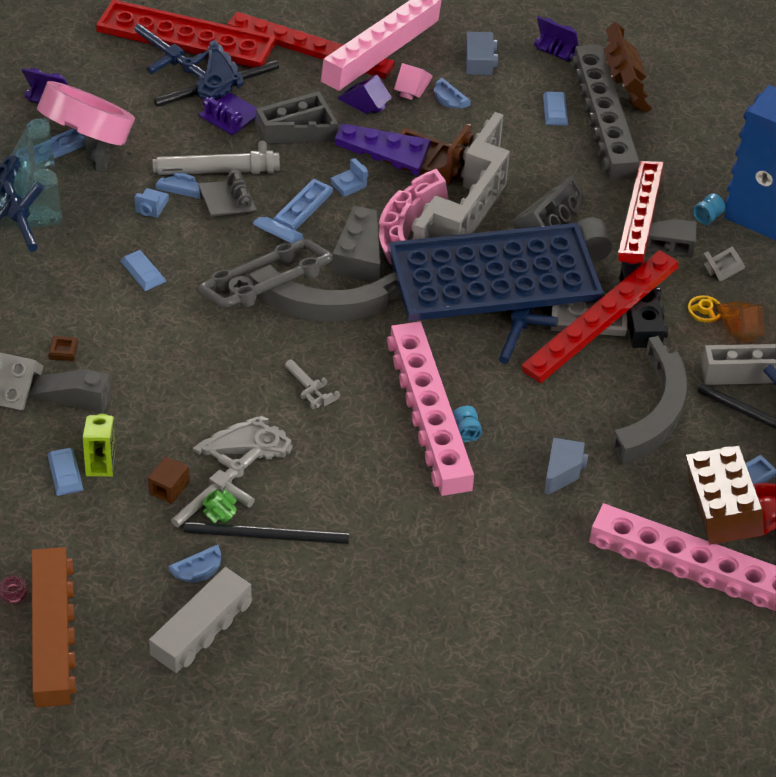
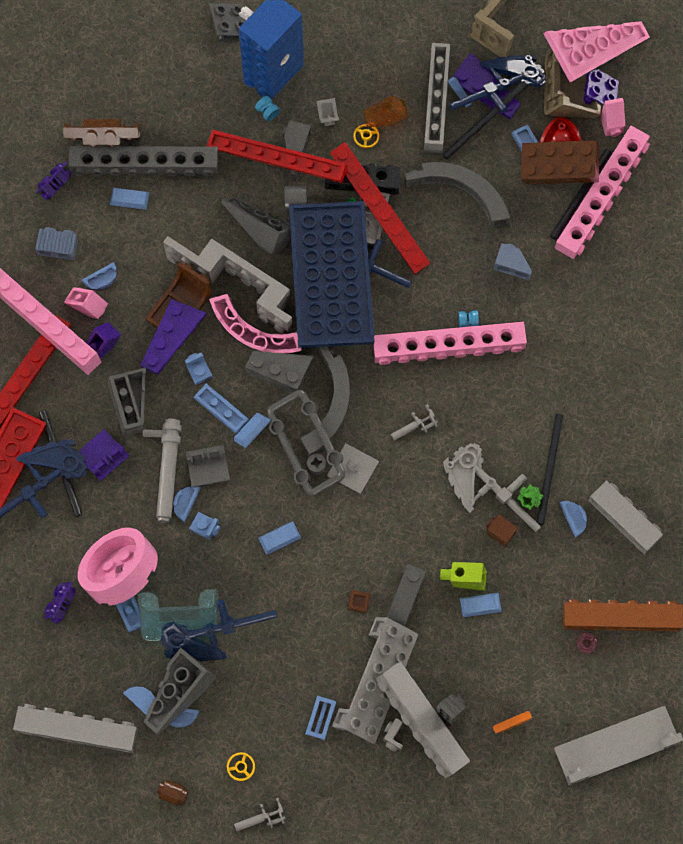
camera: 80 degrees left, 25 degrees up
(242, 331) = (357, 468): none -> light grey piece

